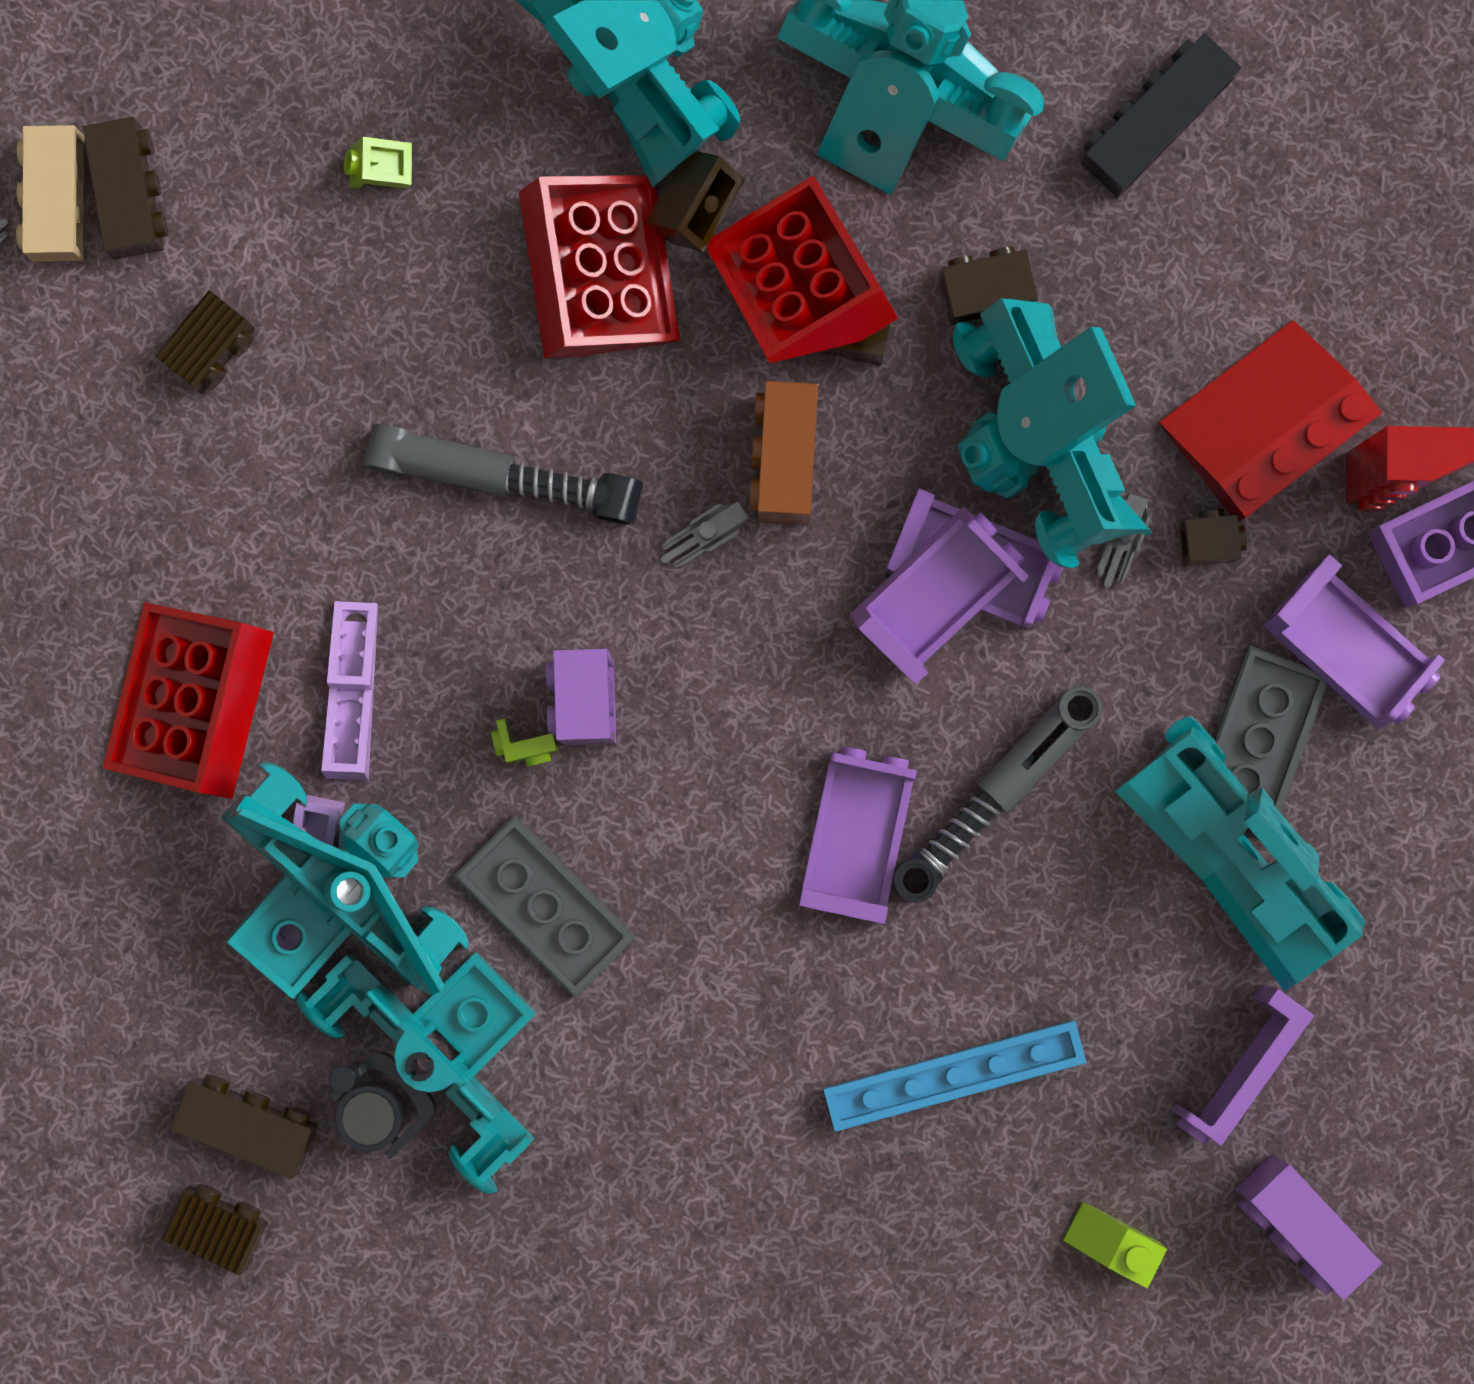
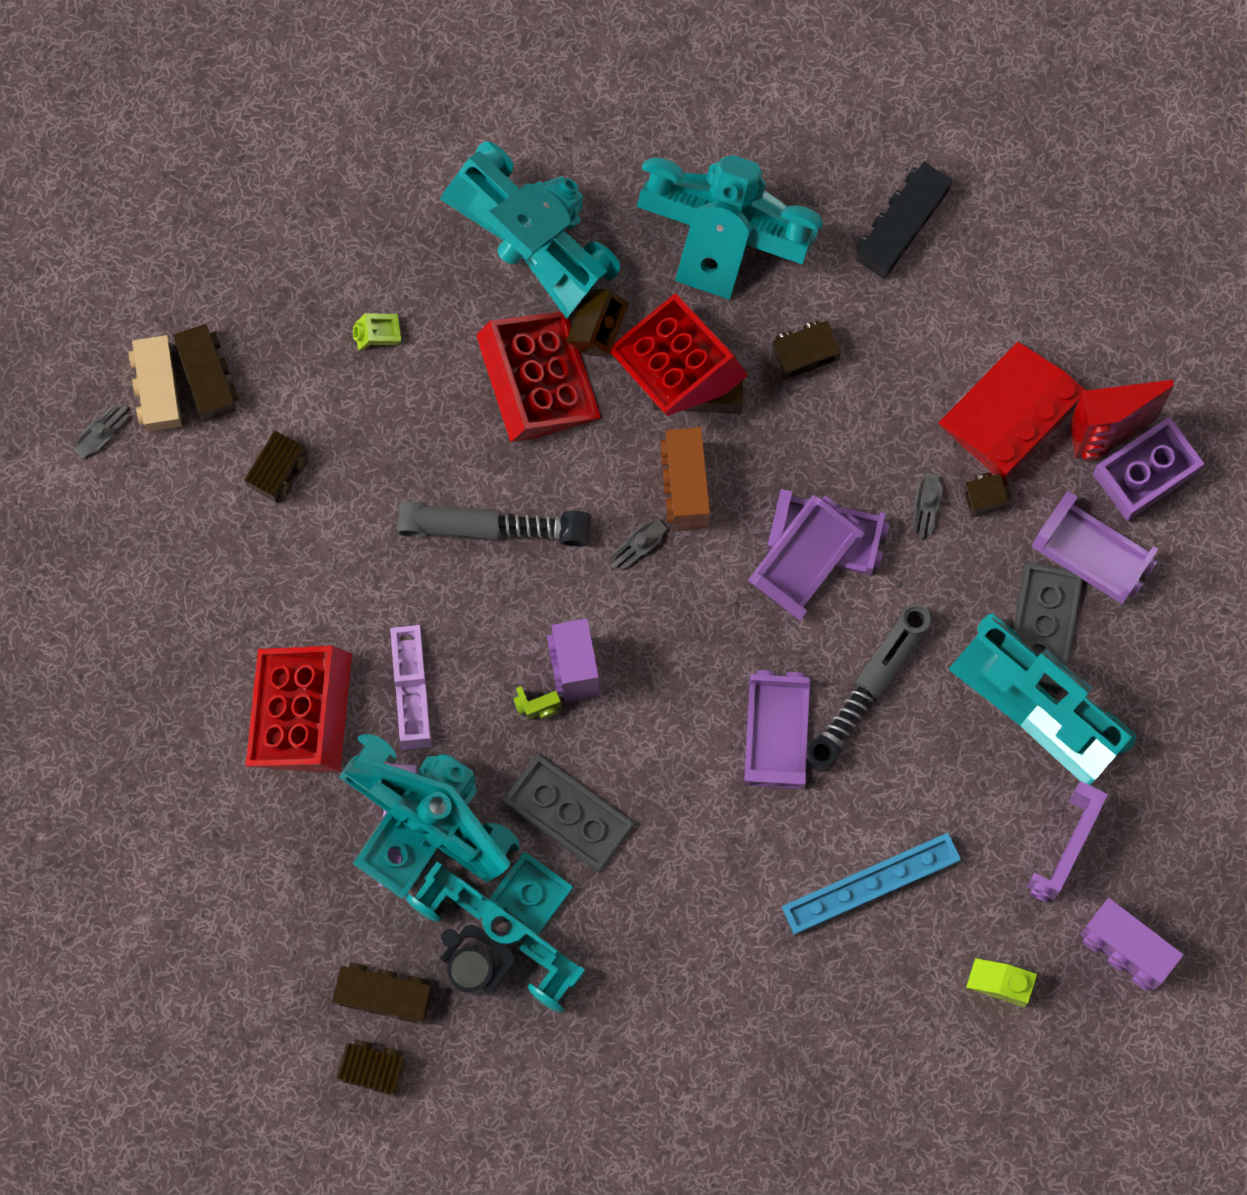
camera: 10 degrees left, 10 degrees down
(1046, 424) = (860, 430): teal piece -> none

